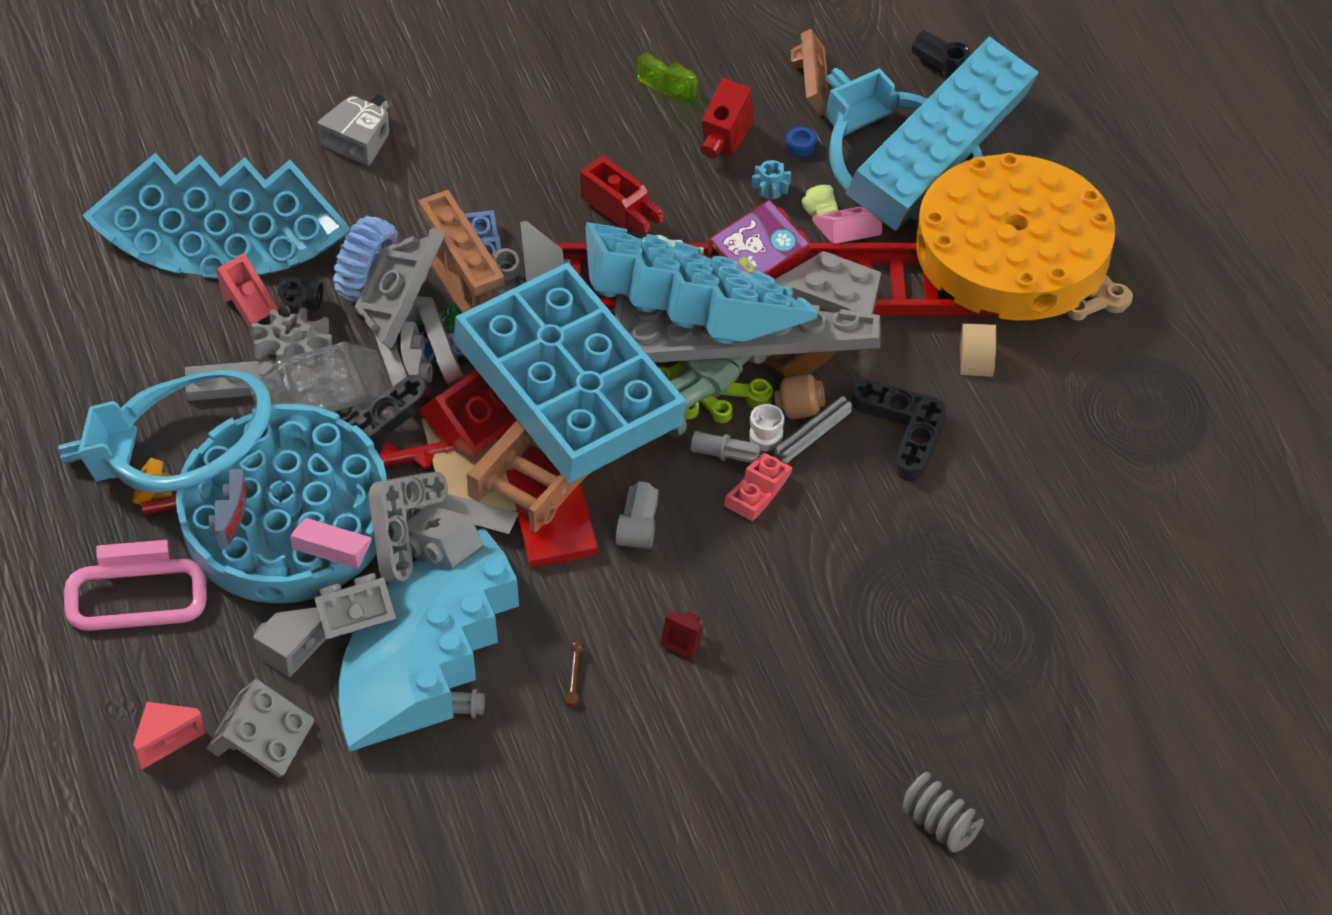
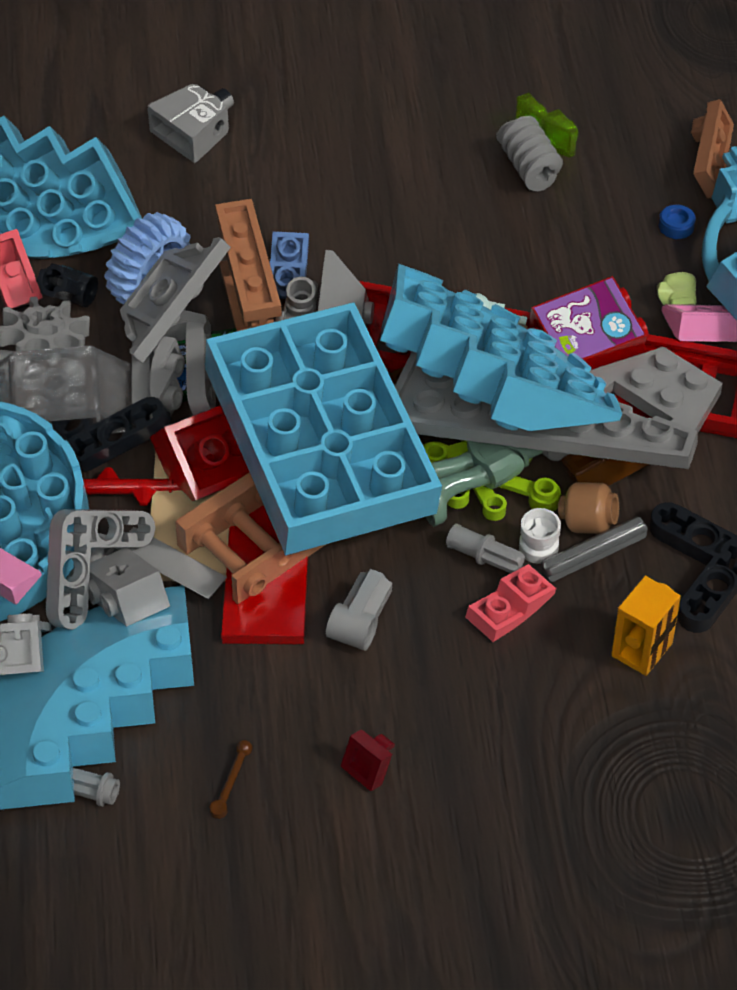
camera: 15 degrees right, 0 degrees up
(618, 196) = (450, 242): red hinge -> none
(661, 104) = (530, 152): none -> light grey piece
(727, 119) = (597, 181): red torso -> none
(771, 179) = (629, 256): medium azure gear -> none
(875, 481) = (645, 625): none -> light orange brick

